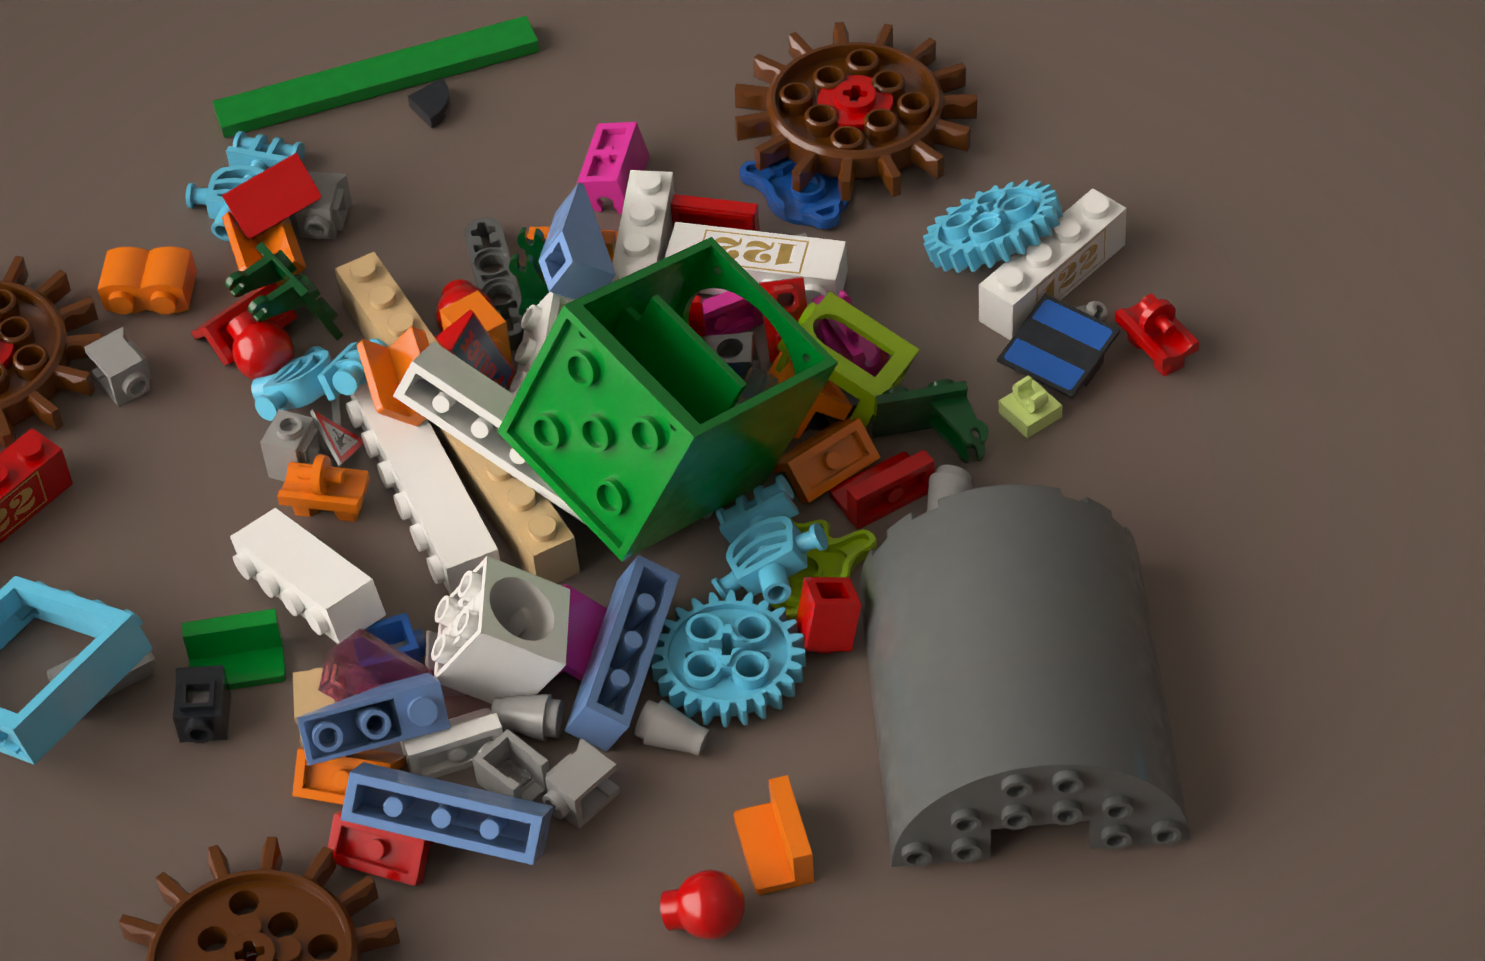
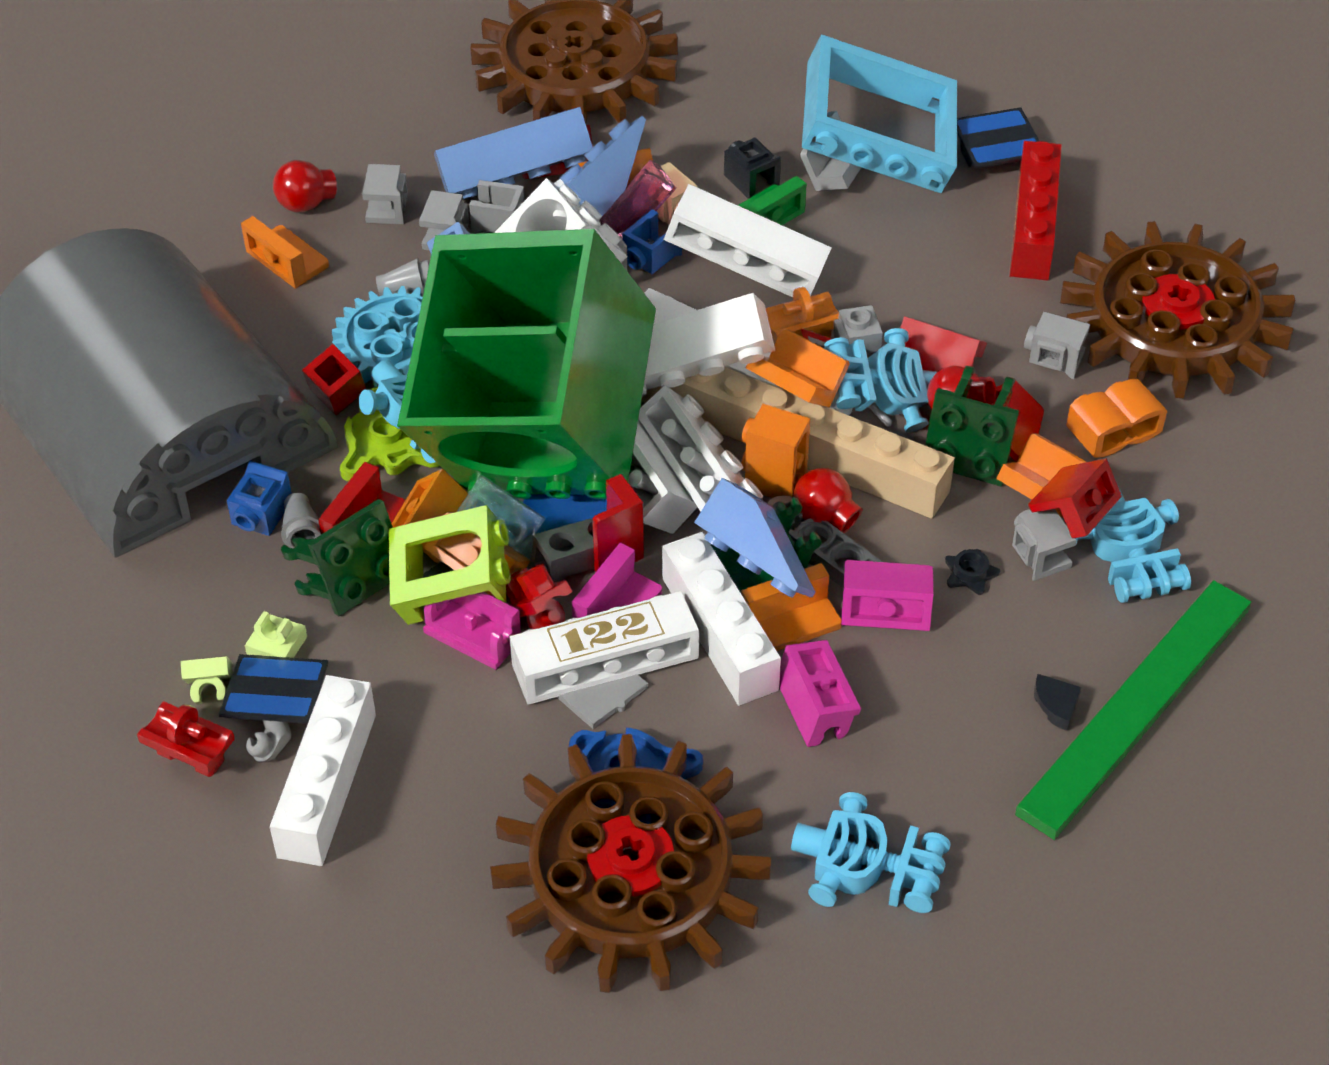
camera: 145 degrees right, 0 degrees up
(219, 418) = (940, 346): none -> panel
(391, 218) = (970, 560): none -> black plate
(474, 346) = (746, 395): slope -> none
(484, 213) = (887, 595): none -> dark pink panel
(618, 857) = (386, 193): none -> light grey window
(676, 59) = (912, 869): none -> medium azure piece
(714, 212) = (680, 682): red tile -> none
(993, 226) = (436, 784): medium azure gear -> none
(1108, 389) = (206, 672): none -> yellowish green tile

